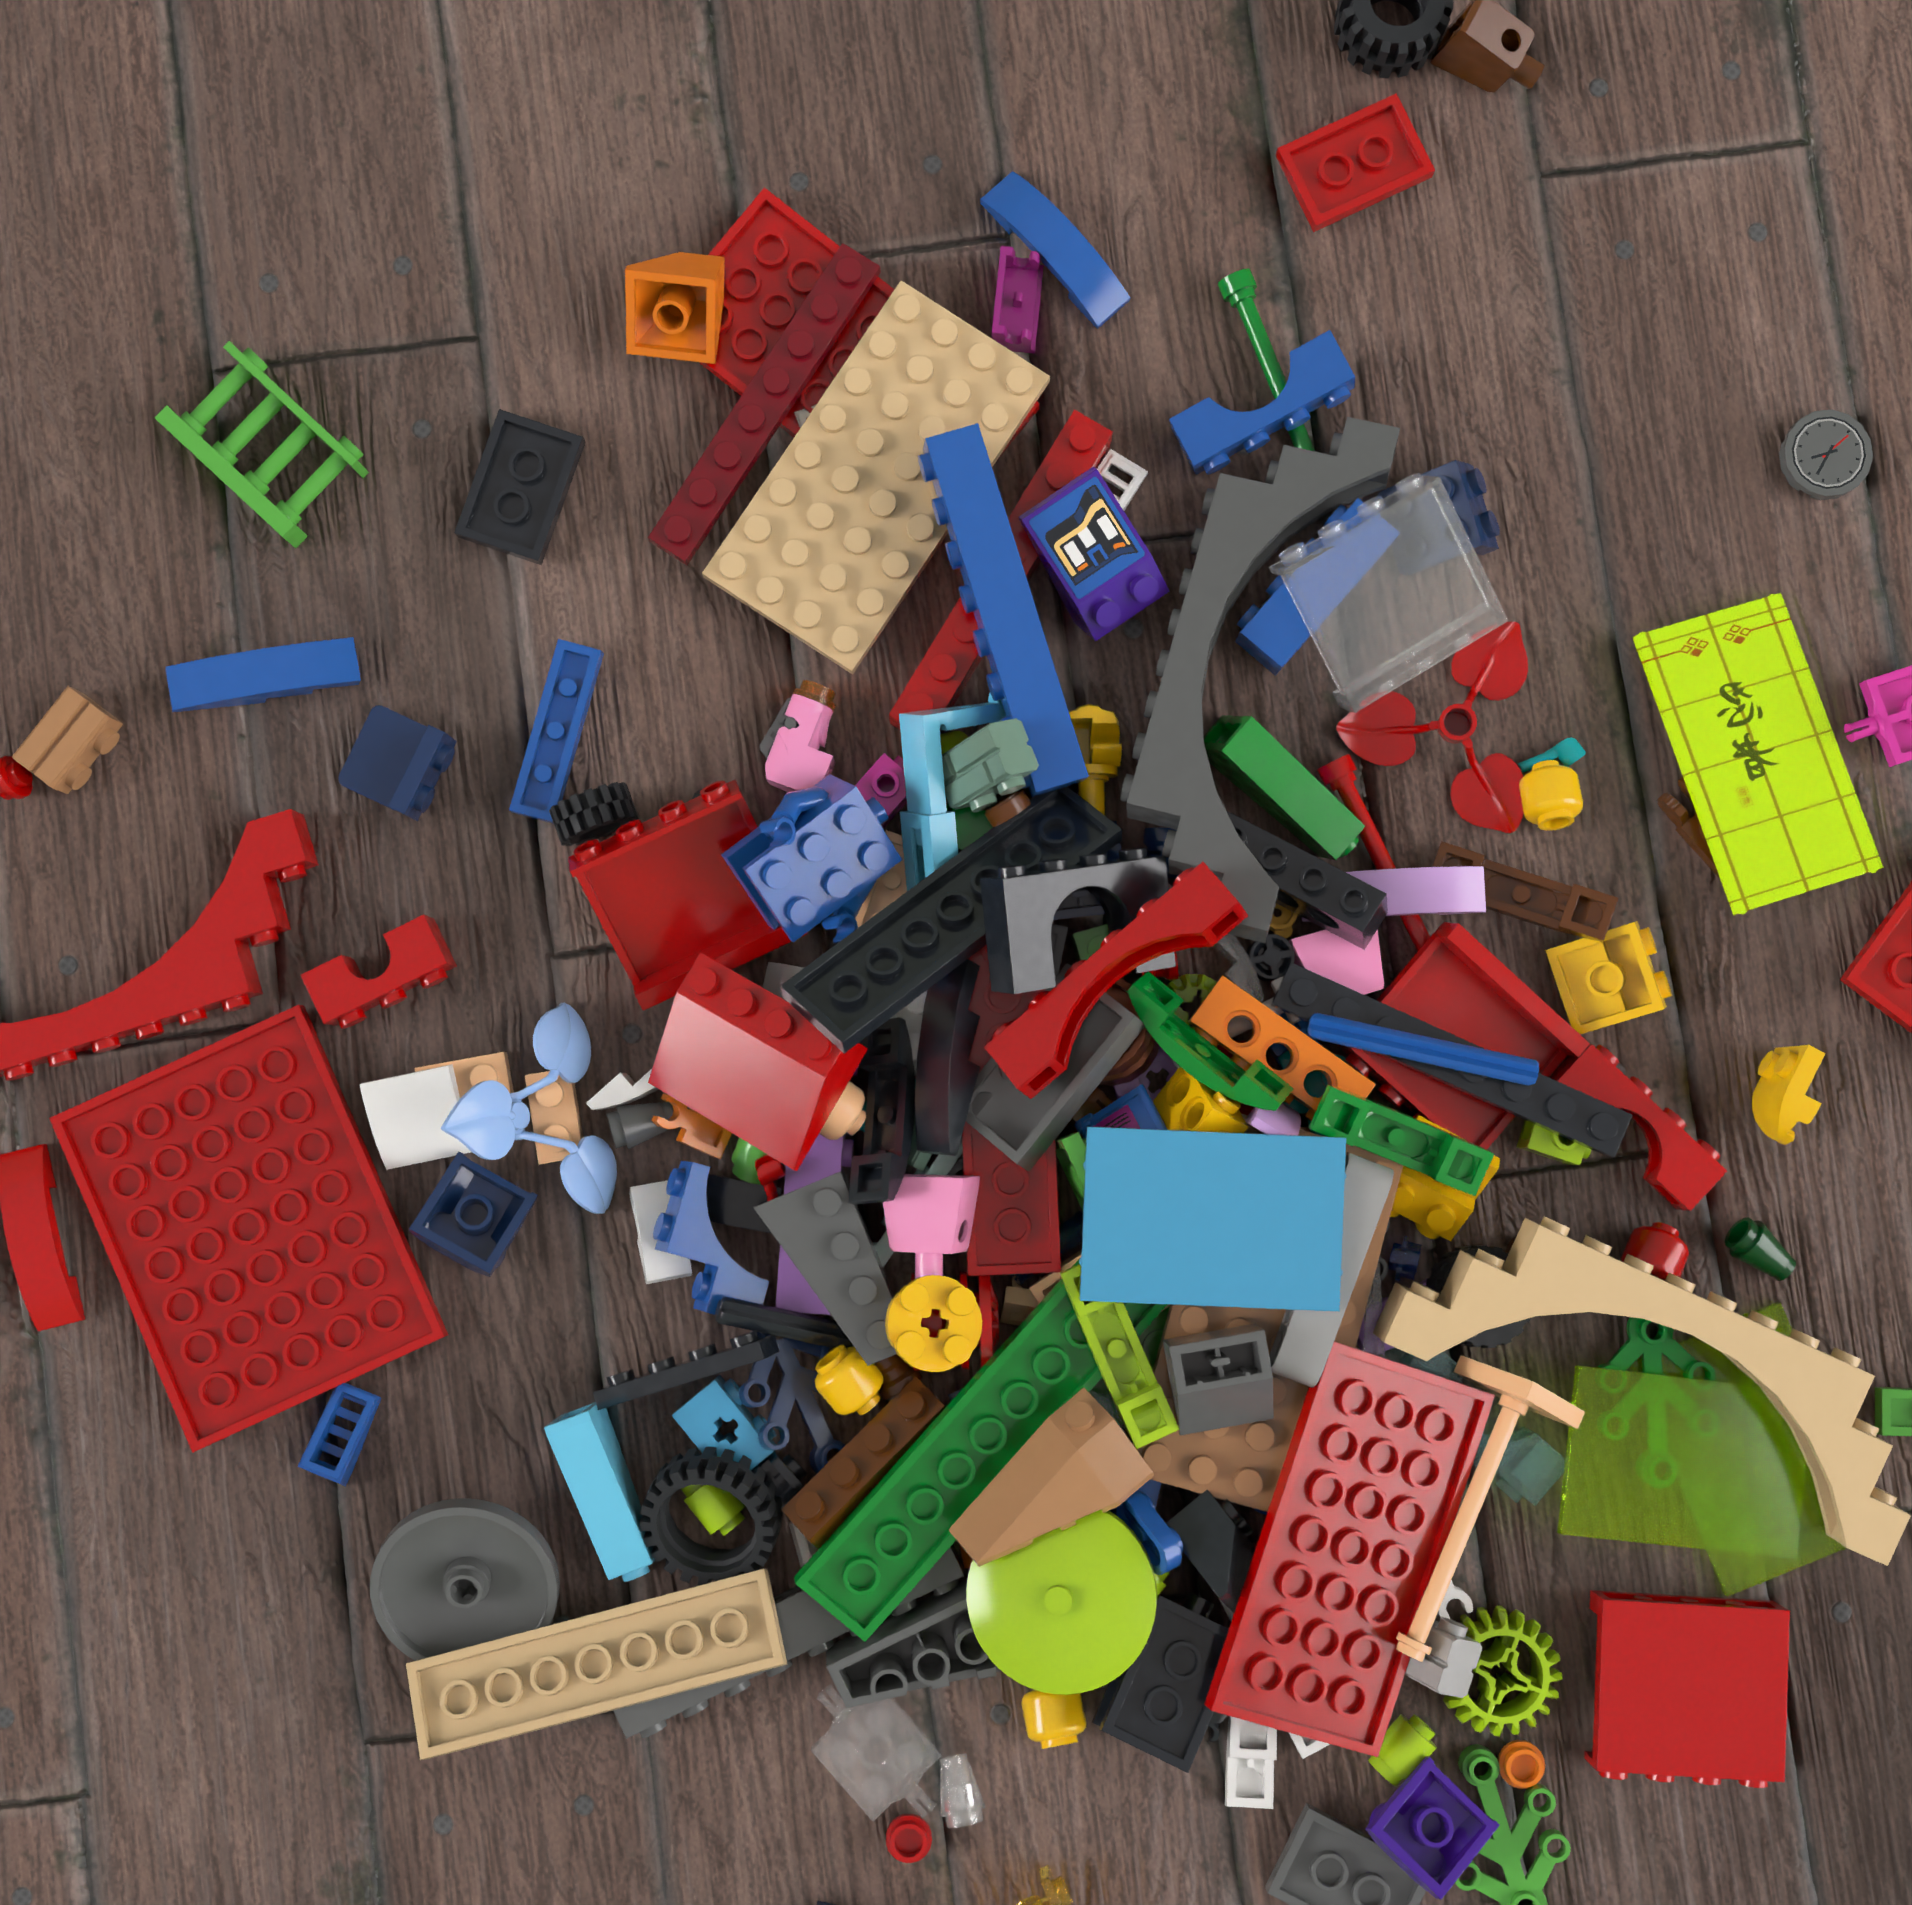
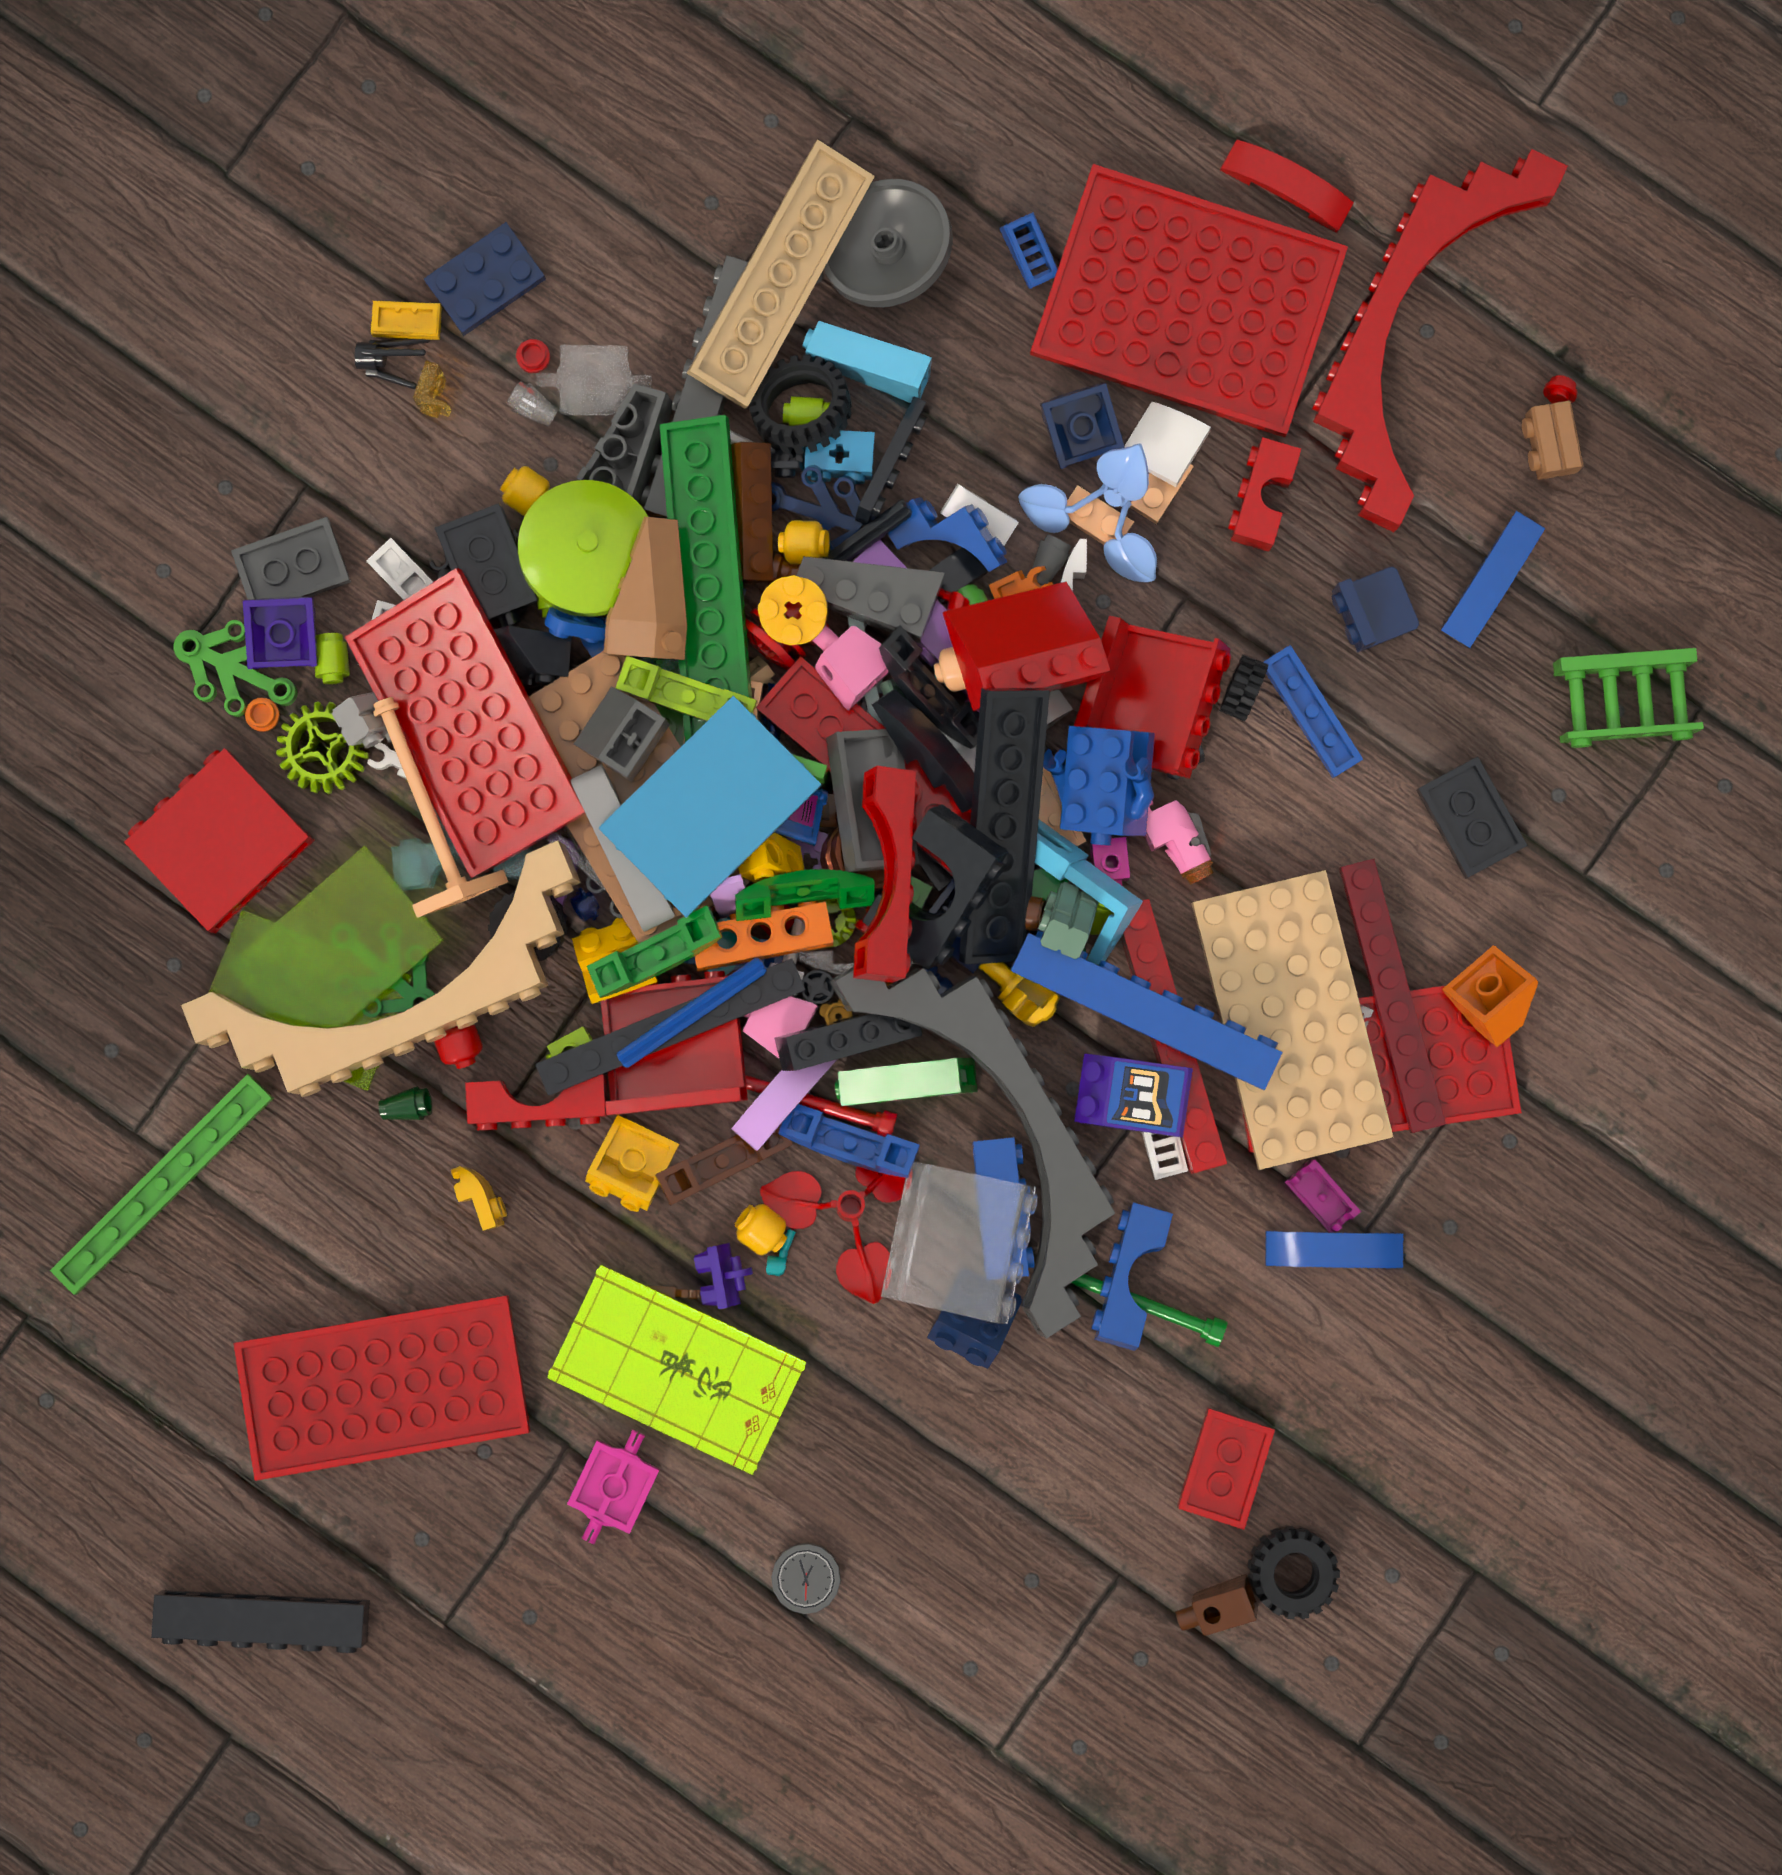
camera: 125 degrees right, 0 degrees up
(1388, 786) = (849, 1143): none -> blue slope
(1625, 788) = (726, 1276): none -> dark purple hips

